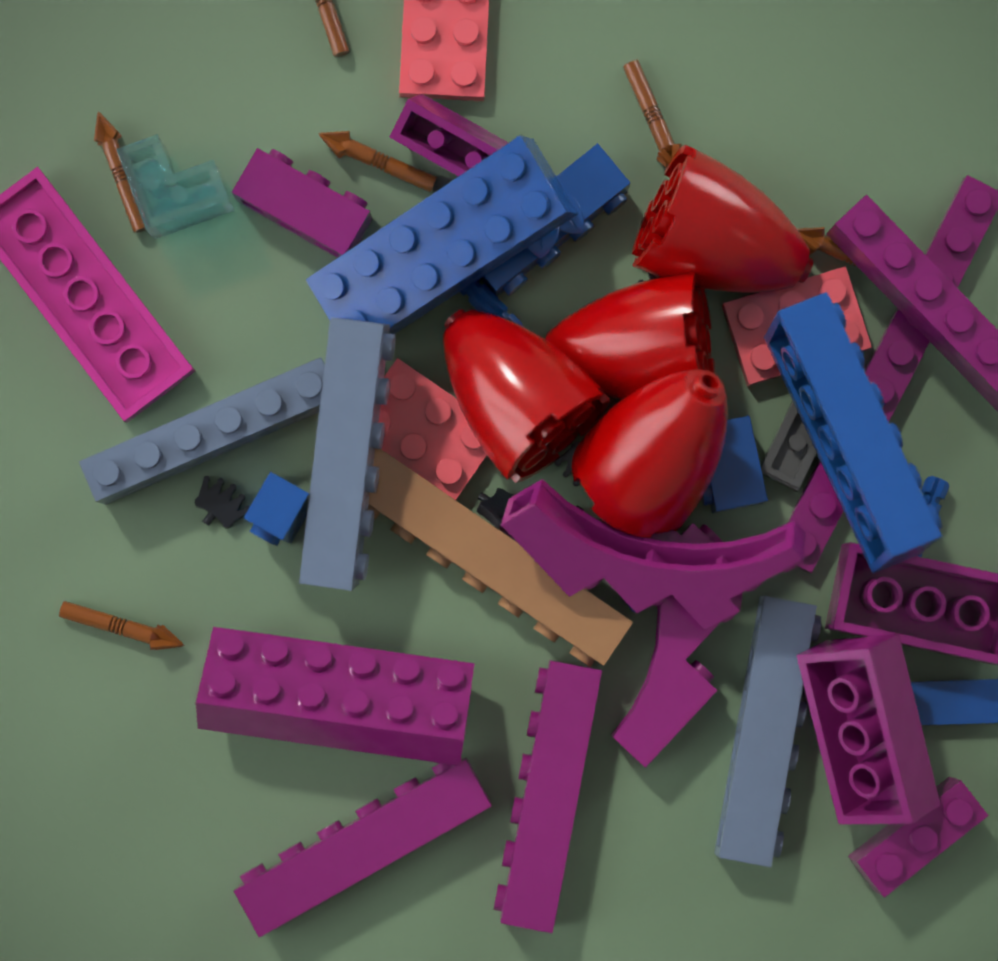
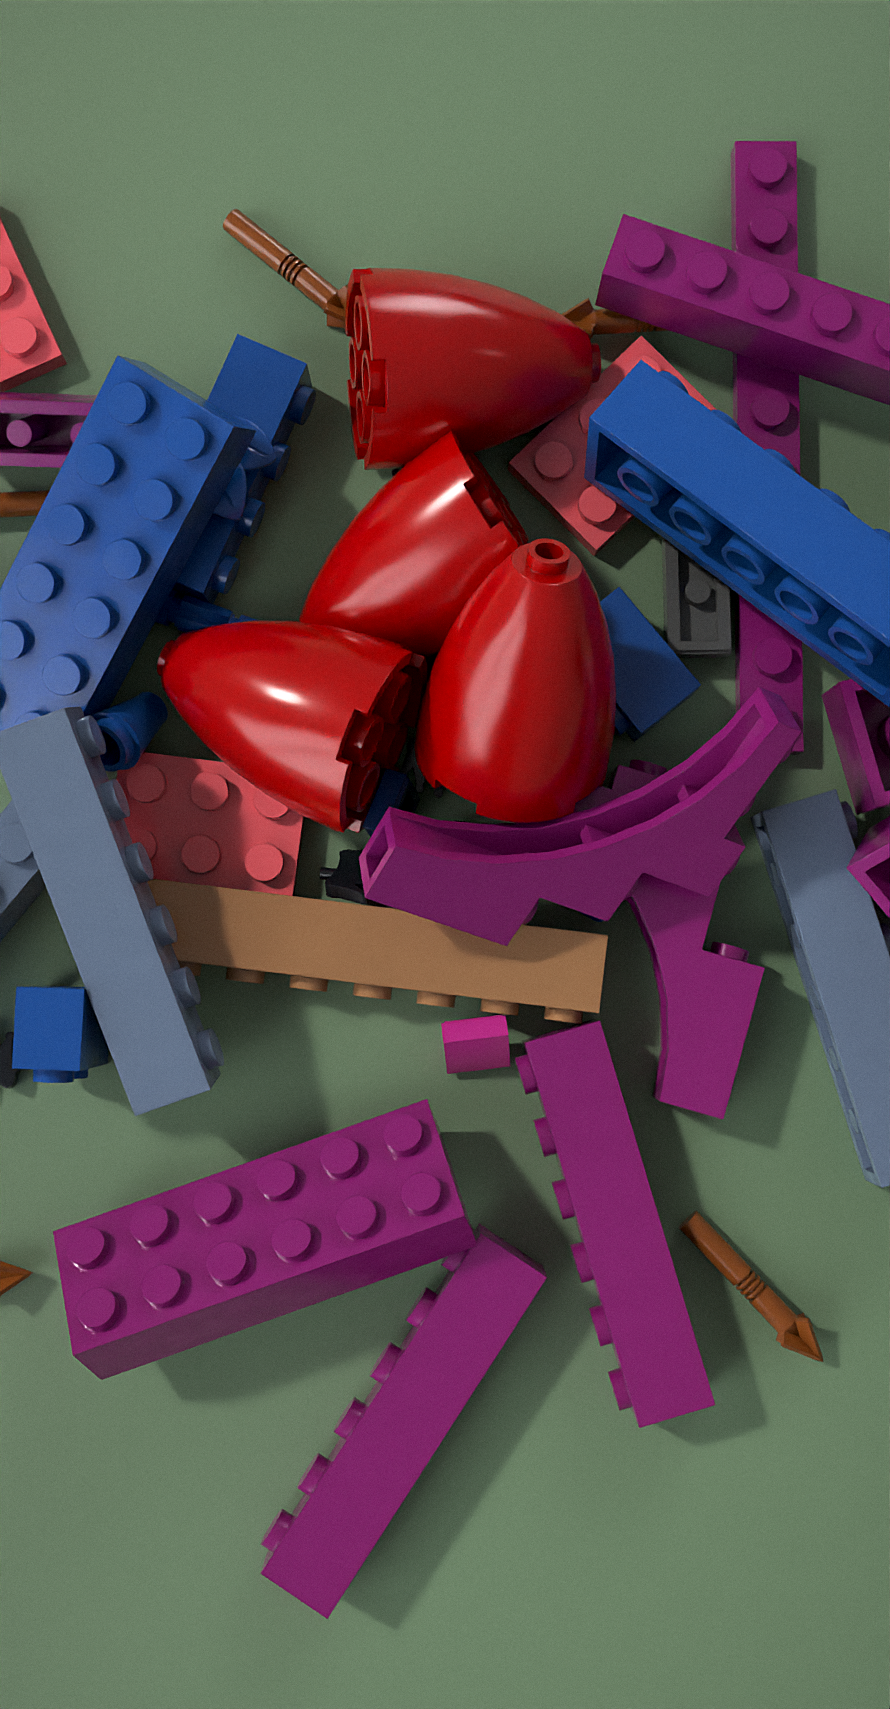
camera: 25 degrees left, 0 degrees up
(411, 349) = (130, 729): none -> blue cone
(520, 647) = (476, 1044): none -> dark pink tile
(549, 470) = (395, 792): none -> dark blue tile
(622, 918) = (793, 1330): none -> dark orange piece

